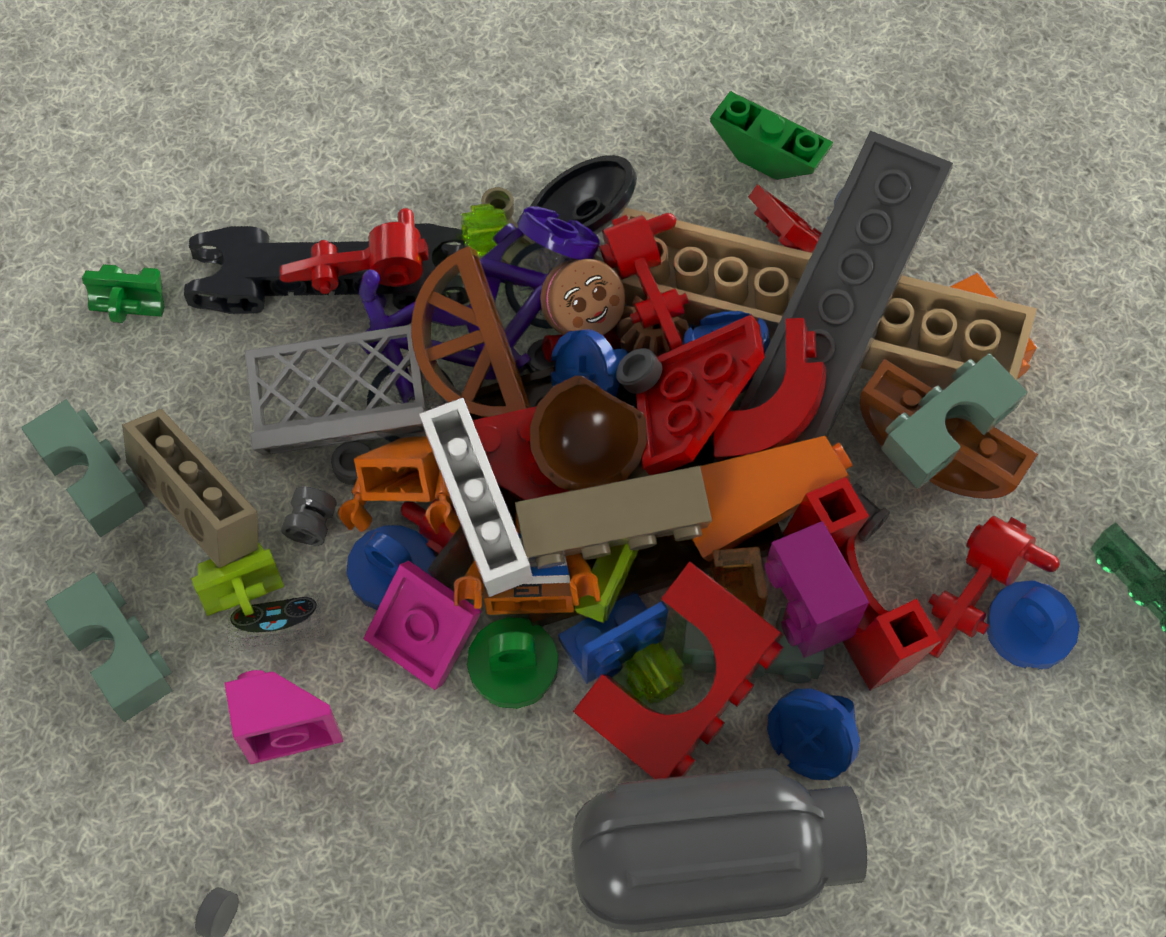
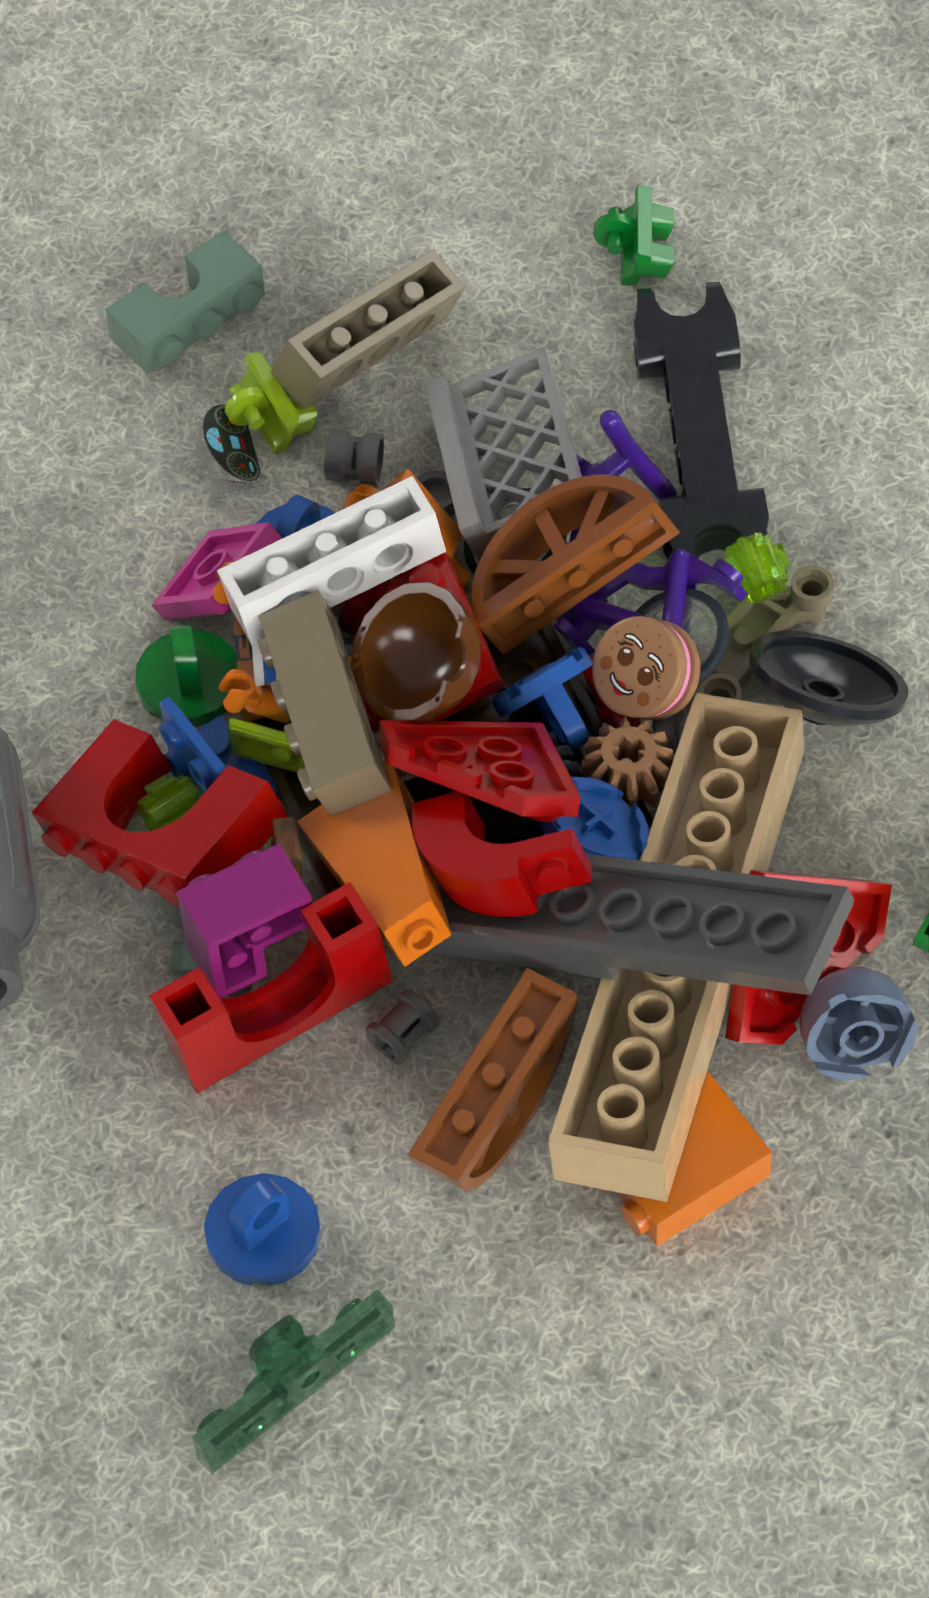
camera: 90 degrees right, 5 degrees down
(104, 492) = (433, 218): sand green arch -> none
(277, 717) = (100, 446): dark pink slope -> none
(393, 252) = (691, 466): red piece -> none
(565, 238) = (721, 619): dark purple tile -> none
(633, 251) = (710, 703): red piece -> none
(639, 371) = (526, 718): dark grey tile -> none
(814, 733) = (106, 975): blue tile -> none
(980, 393) = (447, 1022): sand green arch -> none
(998, 553) = (340, 1180): red piece -> none

